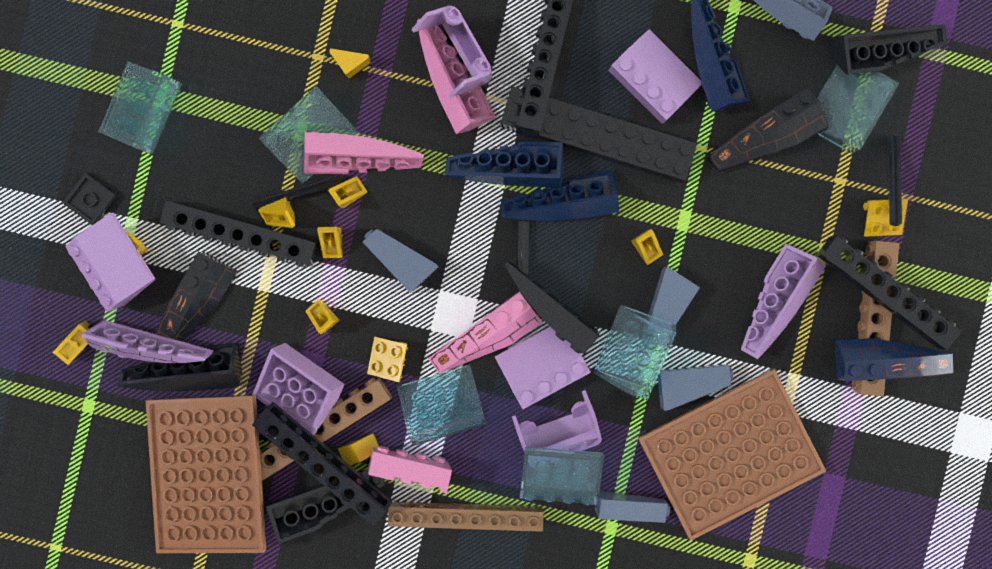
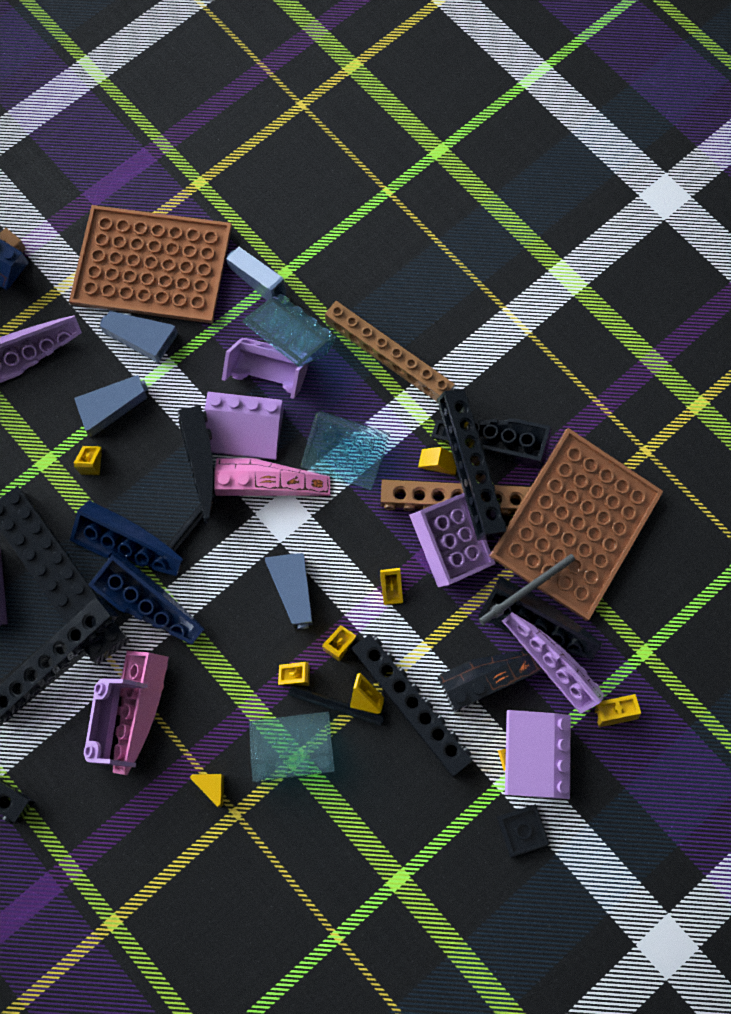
camera: 145 degrees left, 15 degrees down
(140, 107) = (422, 881): clear light blue slope -> none
(214, 354) = (498, 609): none -> dark grey bar
(342, 153) = (276, 711): bright pink wedge -> none
(387, 359) = (362, 515): yellow hinge -> none
(410, 468) = (404, 415): bright pink wedge -> none
(635, 351) = (161, 383): clear light blue slope -> none

